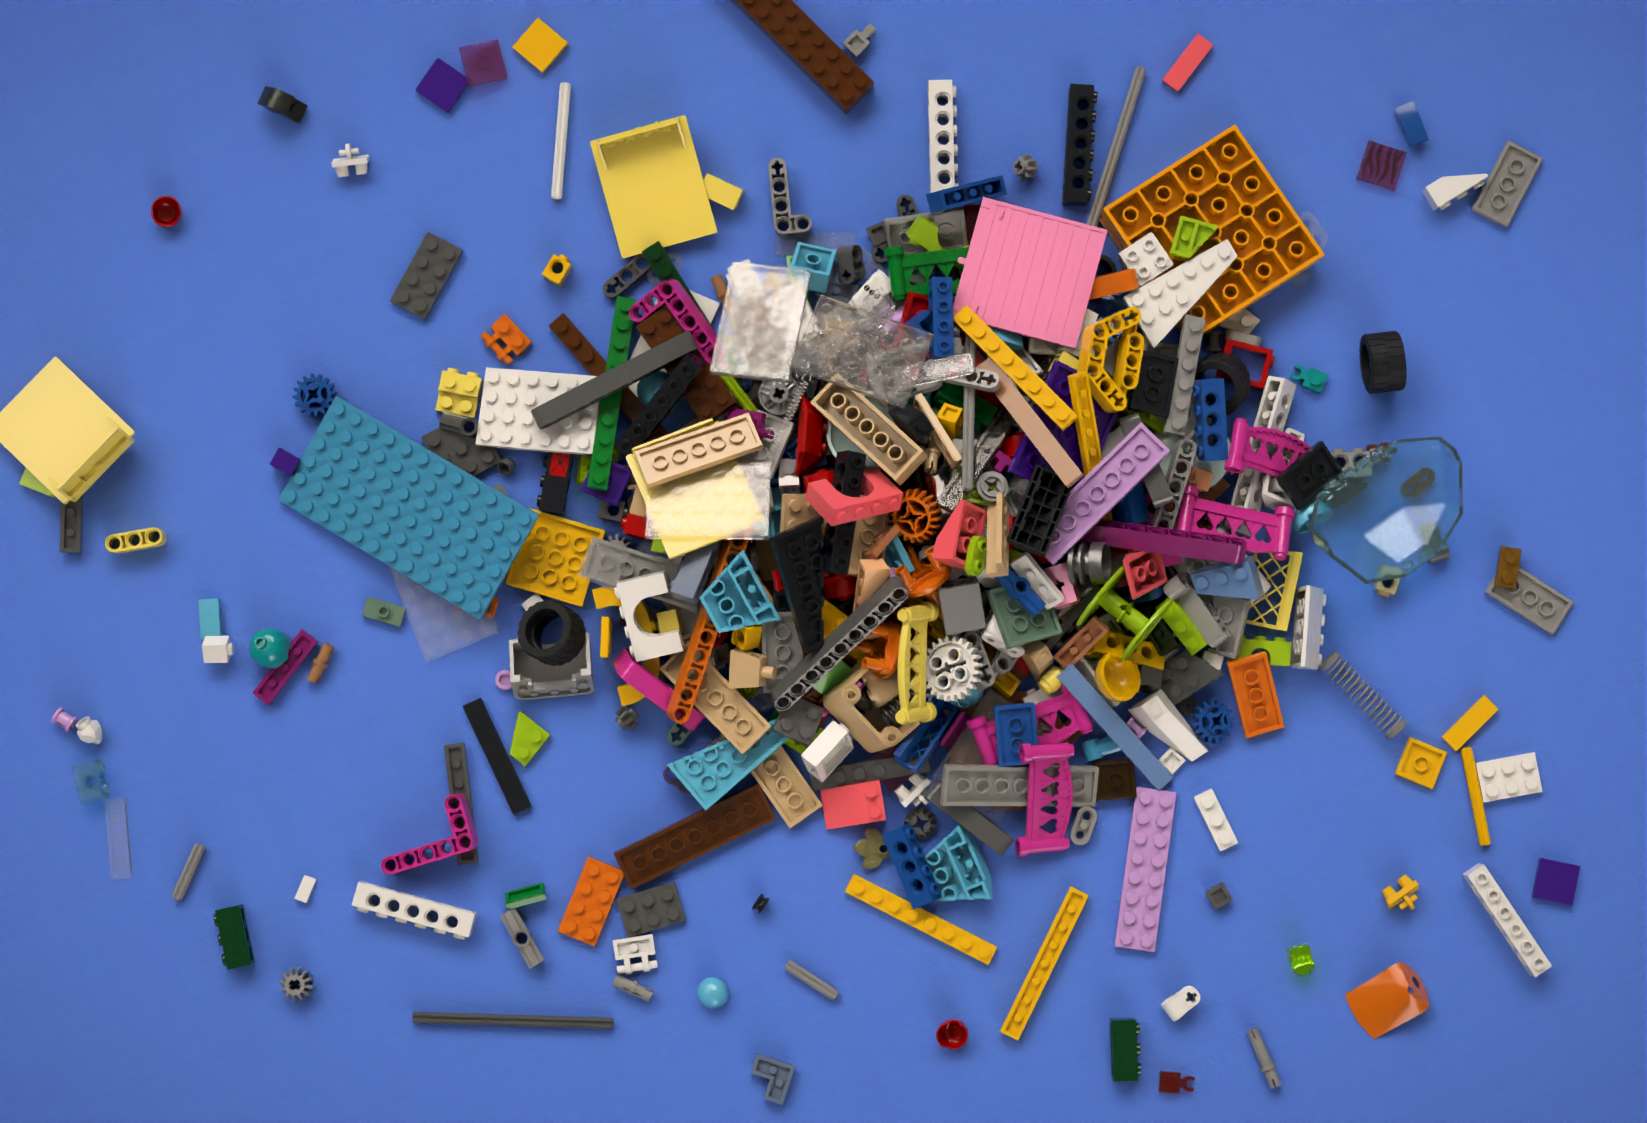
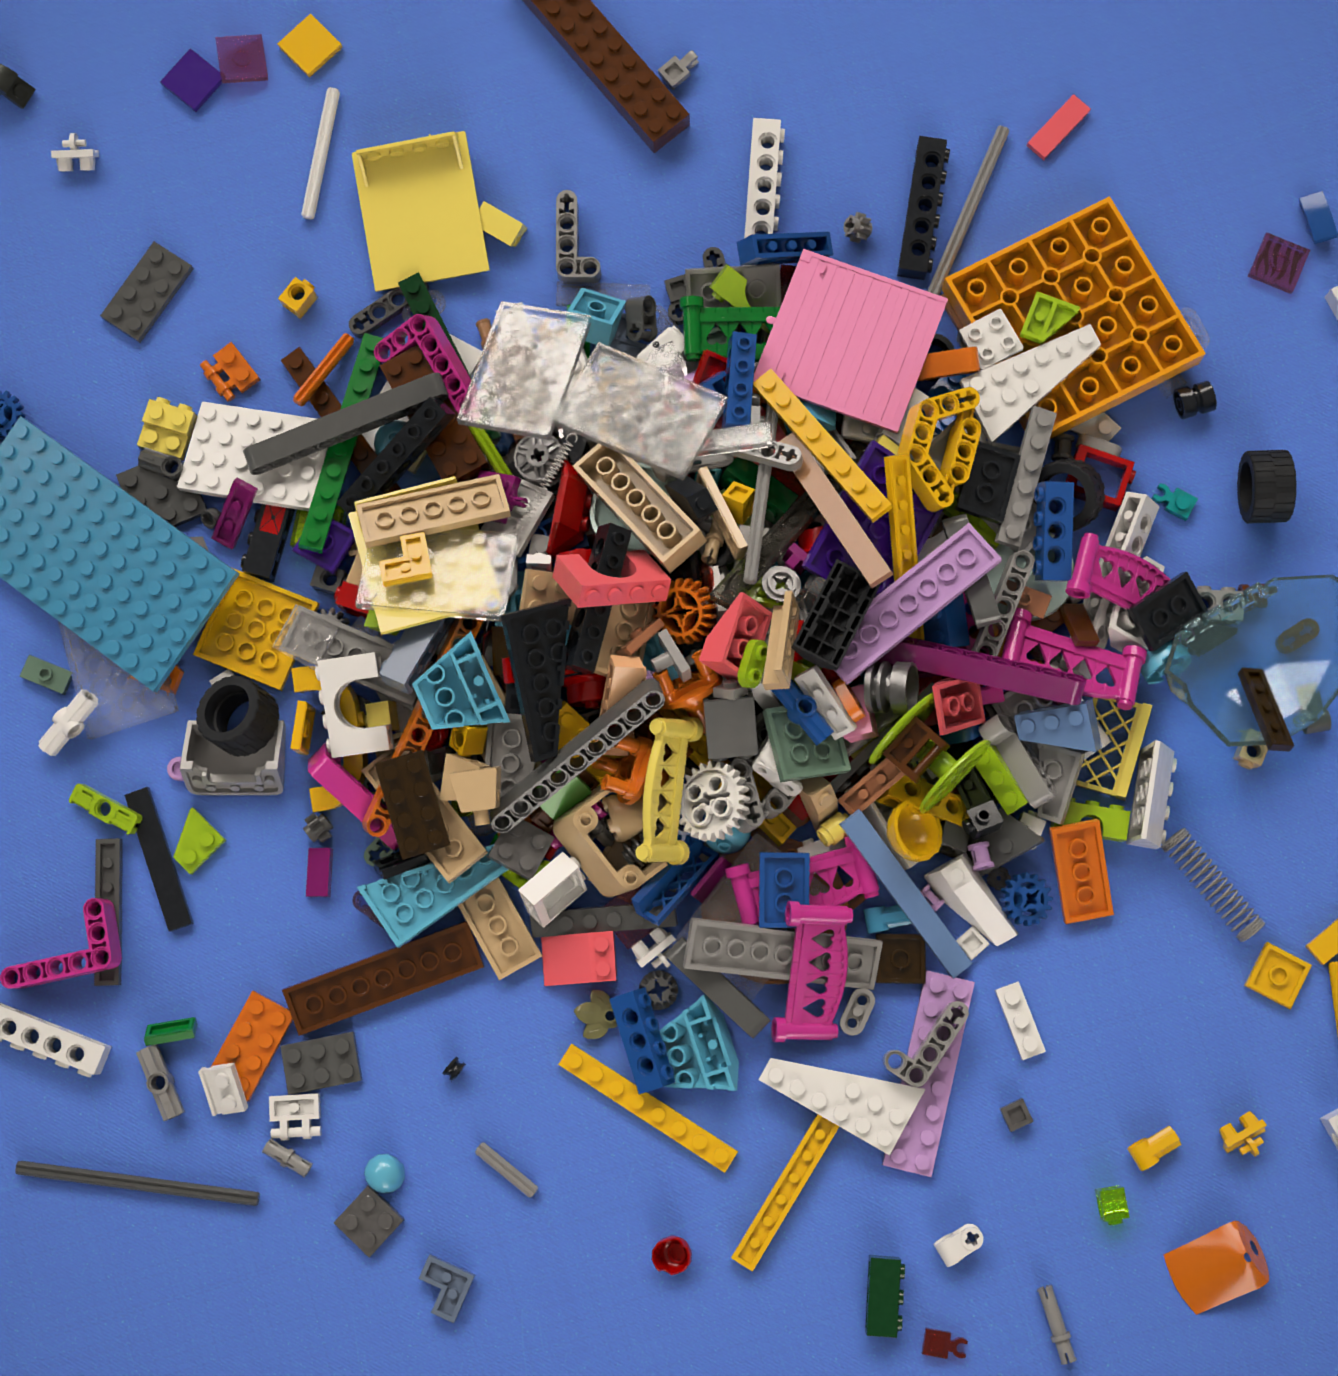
camera: 15 degrees right, 5 degrees down
(409, 651) = (68, 722): none -> white piece
(436, 713) = (92, 801): none -> lime piece
(527, 462) = (234, 513): none -> magenta tile
(575, 938) = (223, 1089): none -> white plate
(587, 331) = (323, 369): none -> orange axle
(631, 754) = (319, 872): none -> magenta slope
(689, 499) = (412, 566): none -> yellow plate
(699, 740) = (394, 865): none -> black plate
(704, 1031) = (369, 1221): none -> flat silver plate
(707, 694) = (412, 804): none -> dark brown plate
(761, 680) = (477, 791): none -> tan torso
(908, 556) = (671, 657): none -> light grey tile
(958, 578) = (729, 690): none -> light grey plate
(1056, 577) = (849, 700): none -> orange beam
(1089, 899) = (859, 1104): none -> white wing
(1107, 610) = (910, 743): none -> reddish brown plate
(1145, 843) = (930, 1040): none -> light grey beam
(1171, 662) = (982, 820): none -> black brick
(1173, 690) = (981, 856): none -> lavender bush
(1237, 493) = (1079, 625): none -> reddish brown tile
(1319, 291) = (1198, 399): none -> black wheel
(1327, 913) = (1149, 1150): none -> yellow piece
(1394, 548) = (1265, 709): none -> dark brown plate

